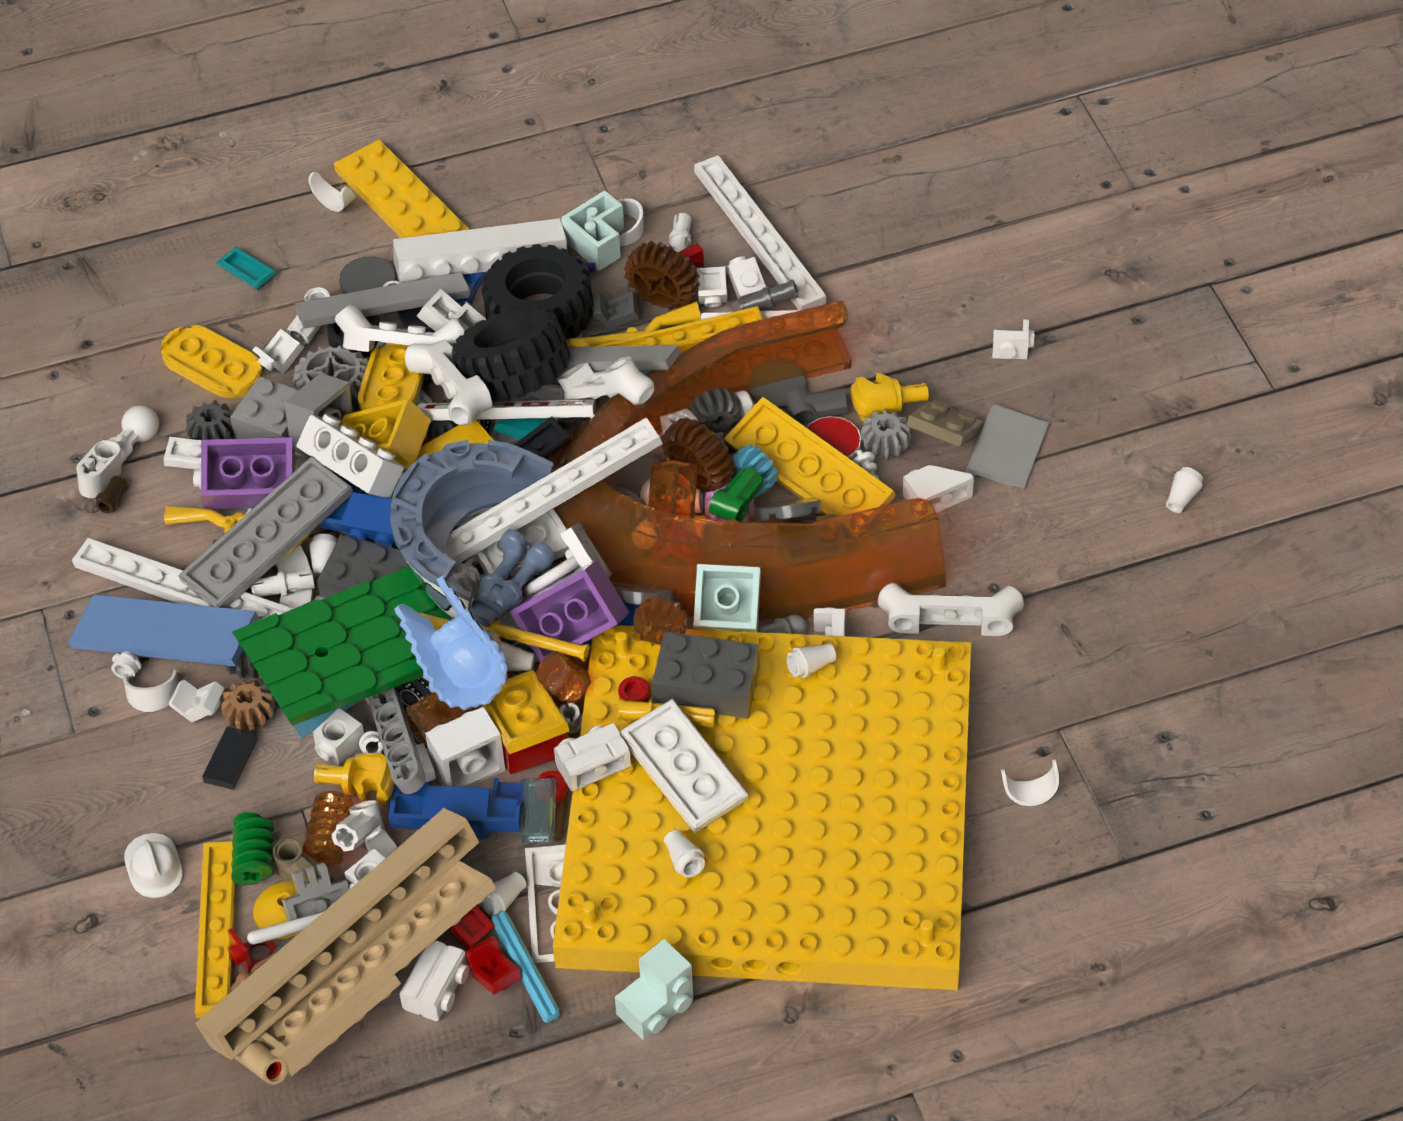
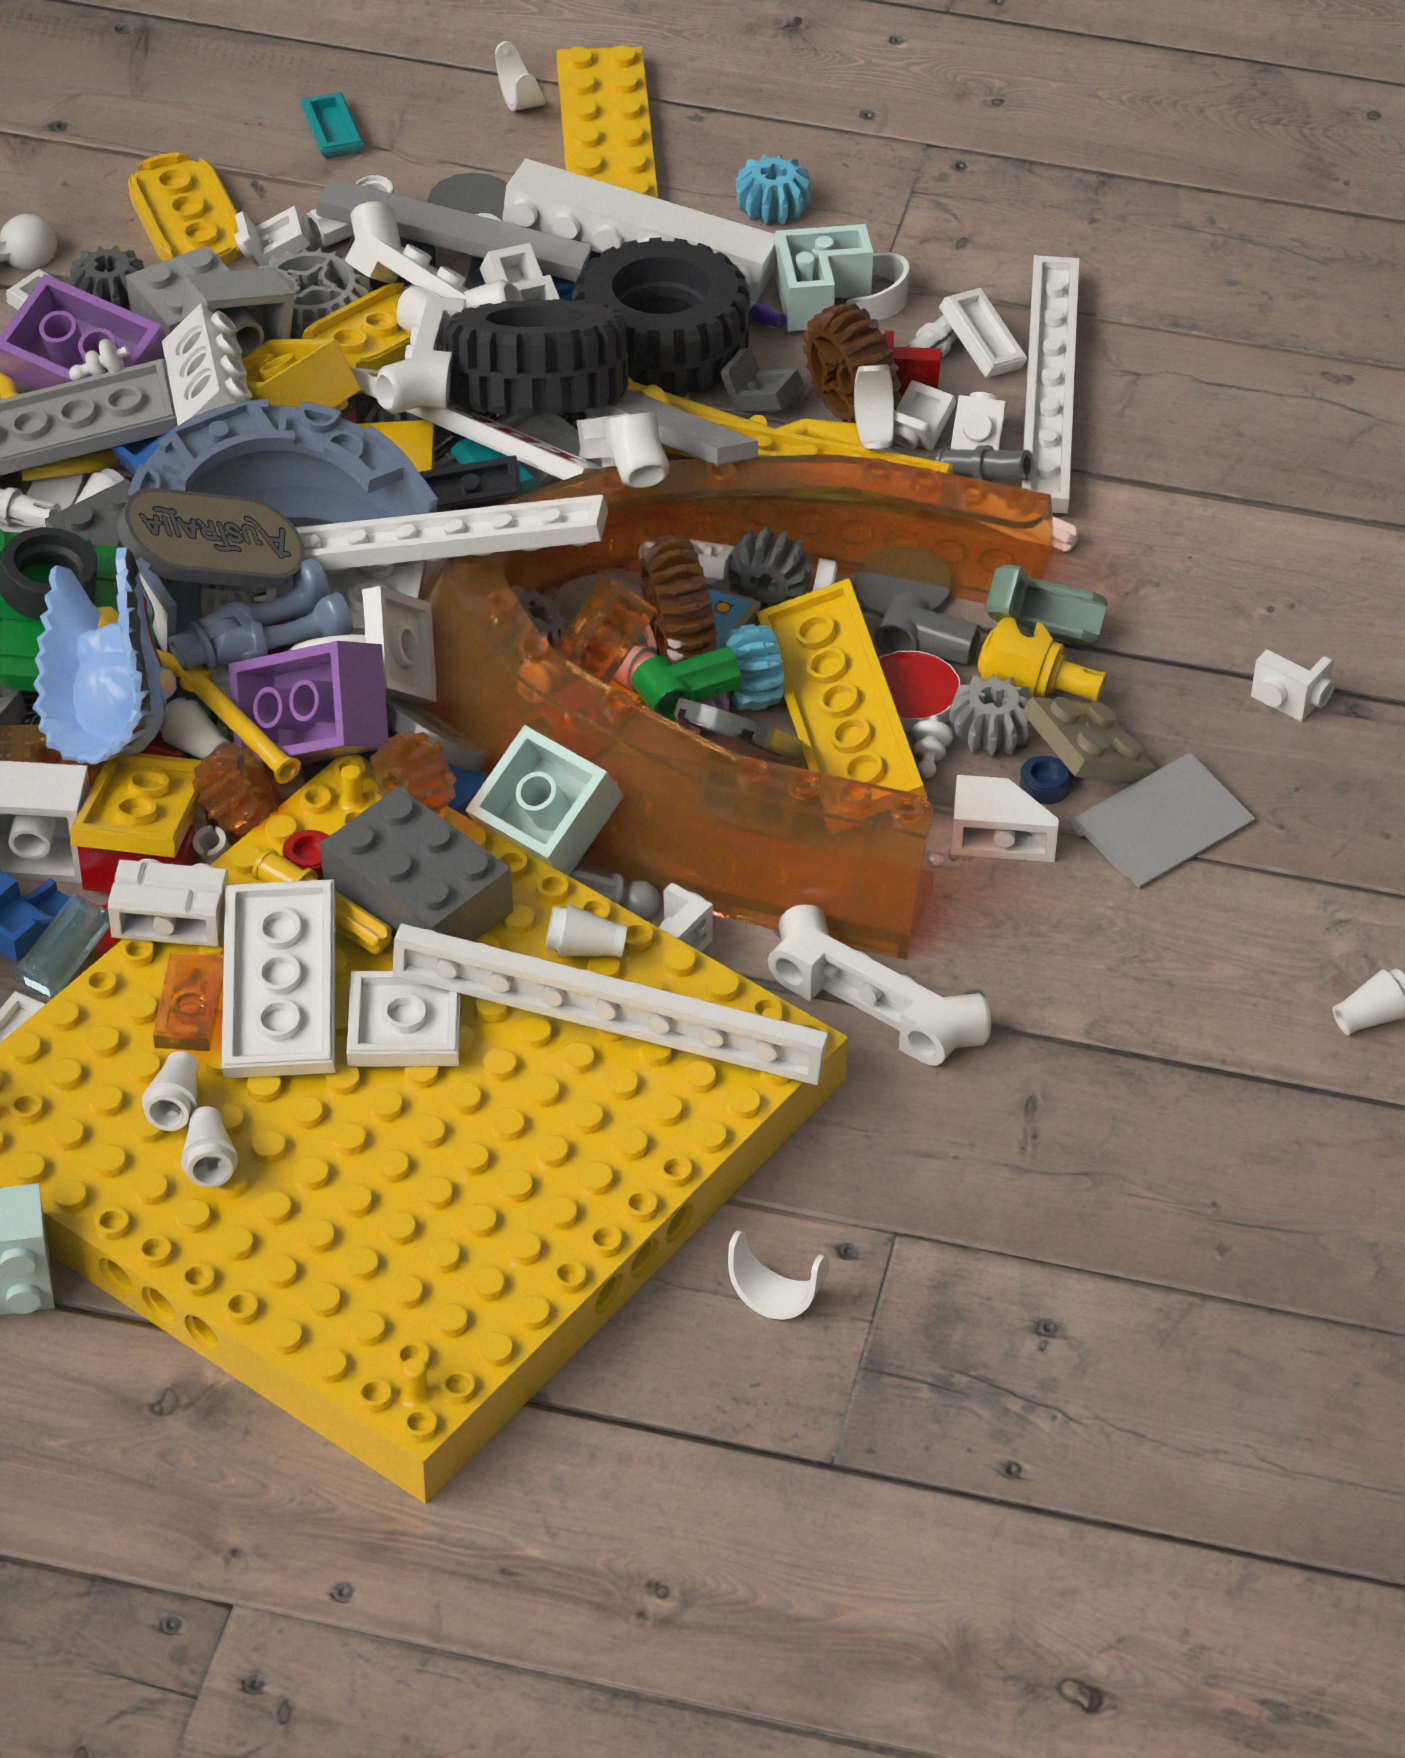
camera: 30 degrees right, 5 degrees down
(274, 478) = (96, 364): none -> white hair
(368, 629) = (38, 547): none -> black tyre
(460, 547) = (211, 538): none -> tile
(525, 191) = (773, 189): none -> medium azure gear
(647, 803) = (189, 1002): none -> clear orange plate
(696, 296) = (874, 406): none -> white helmet
(705, 222) = (983, 332): none -> white tile
(729, 874) = (208, 1150): none -> white cone
(758, 752) = (401, 1022): none -> white tile
(858, 689) = (609, 1004): none -> white plate
(867, 361) = (1062, 609): none -> sand green animal
(935, 454) = (1045, 779): none -> dark blue tile

